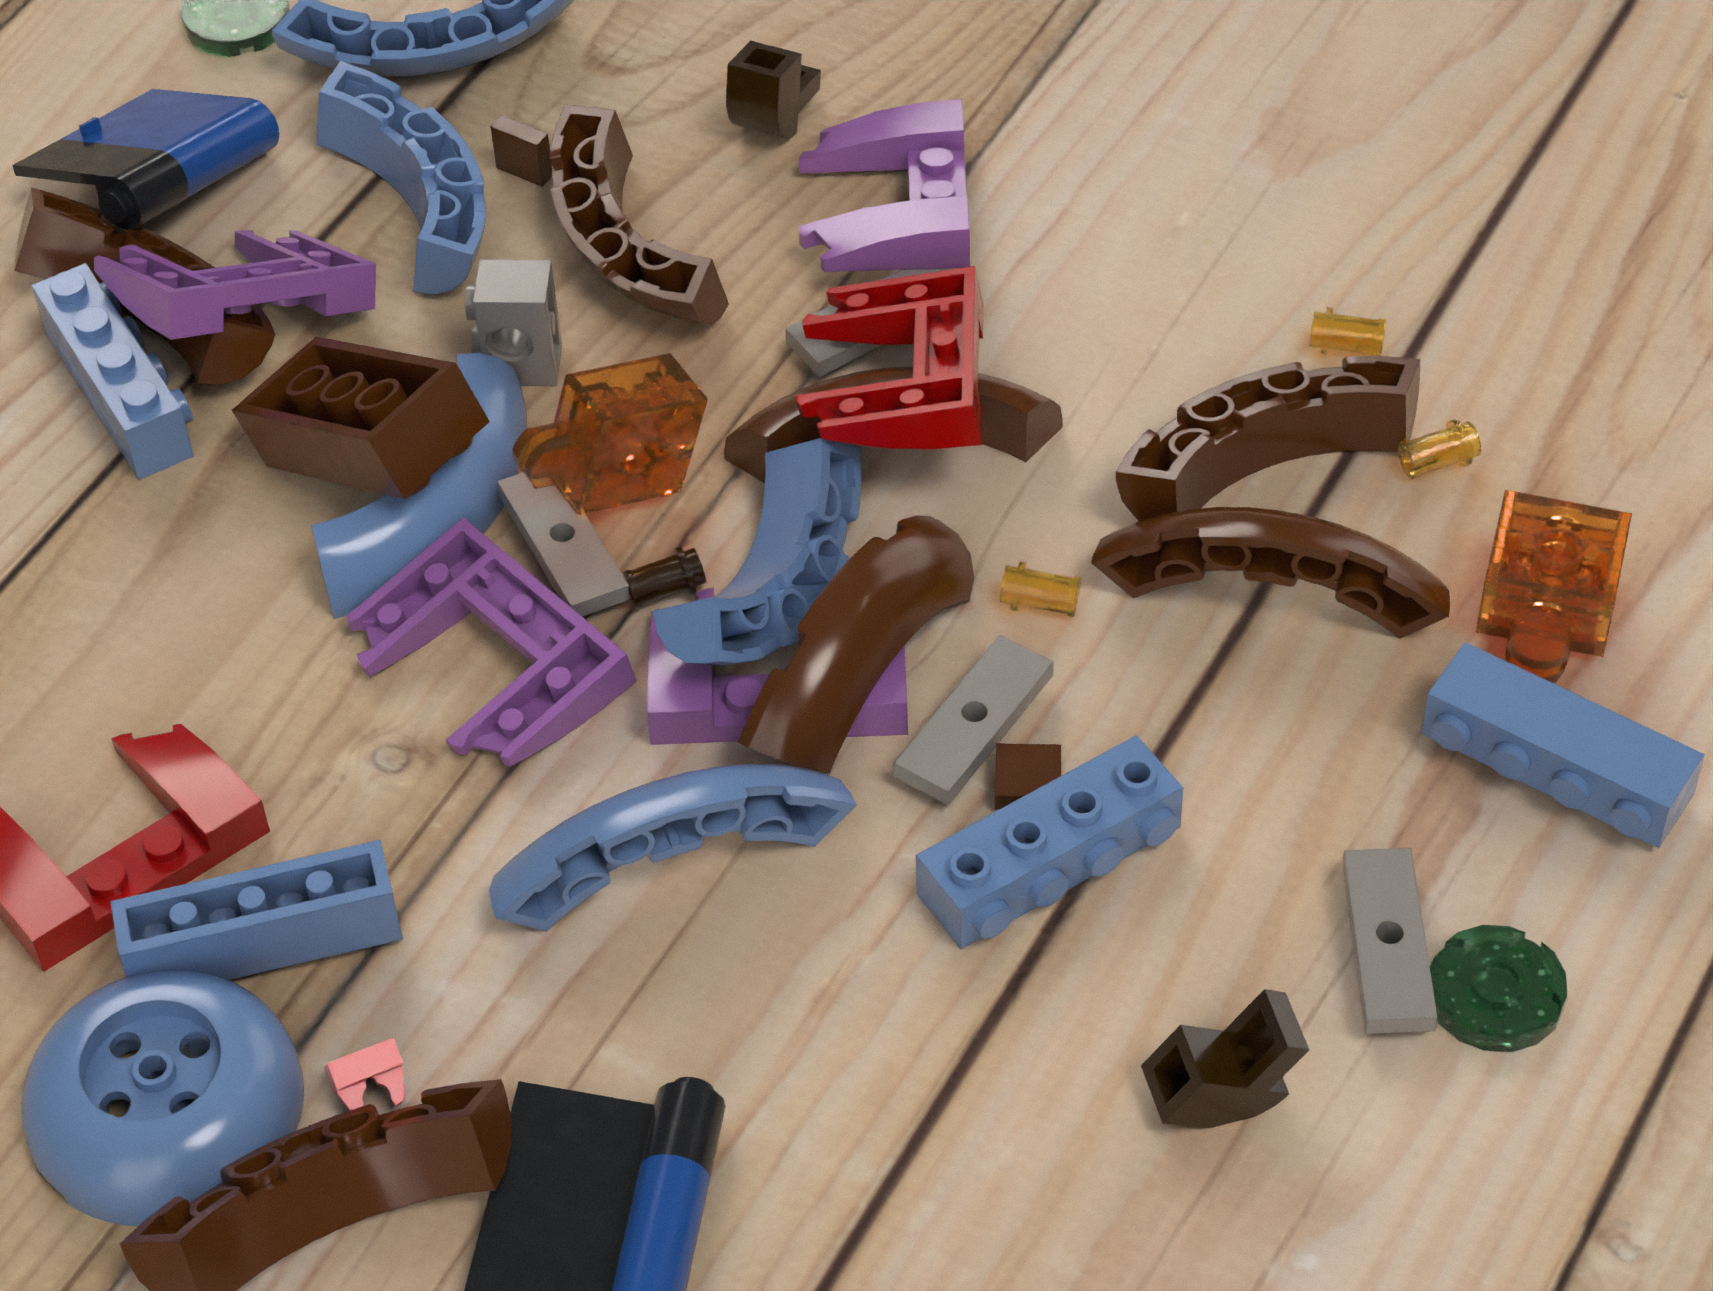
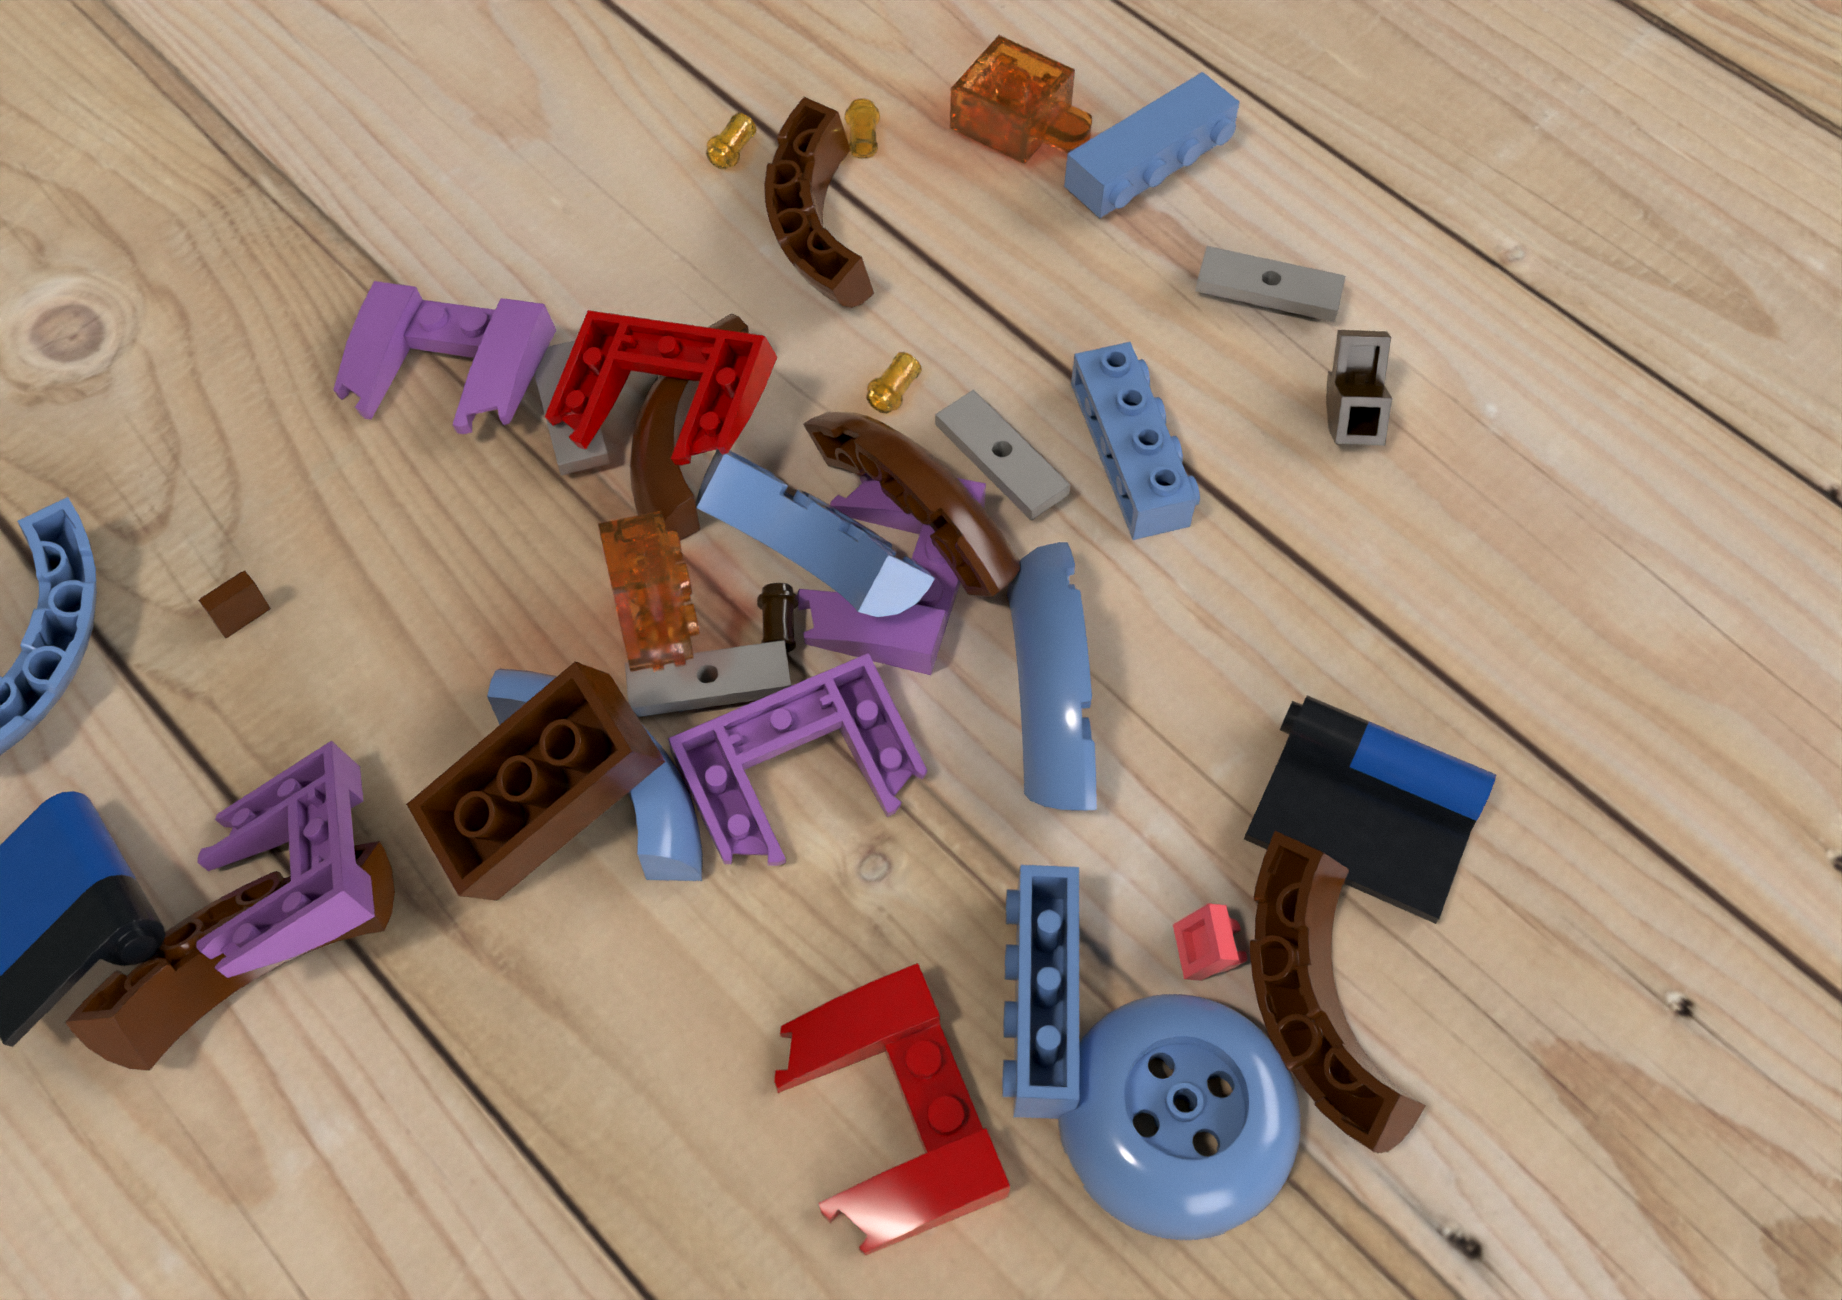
camera: 75 degrees left, 10 degrees up
(114, 371) = (326, 1002): medium blue brick -> none
(419, 158) = (212, 683): medium blue brick -> none
(517, 317) = (464, 643): light grey brick -> none
(587, 191) = (379, 560): reddish brown brick -> none
(769, 89) = (285, 401): dark brown brick -> none
(1024, 769) = (1060, 440): reddish brown tile -> none
(1275, 550) = (928, 240): reddish brown brick -> none
(1498, 988) = (1316, 241): clear green tile -> none

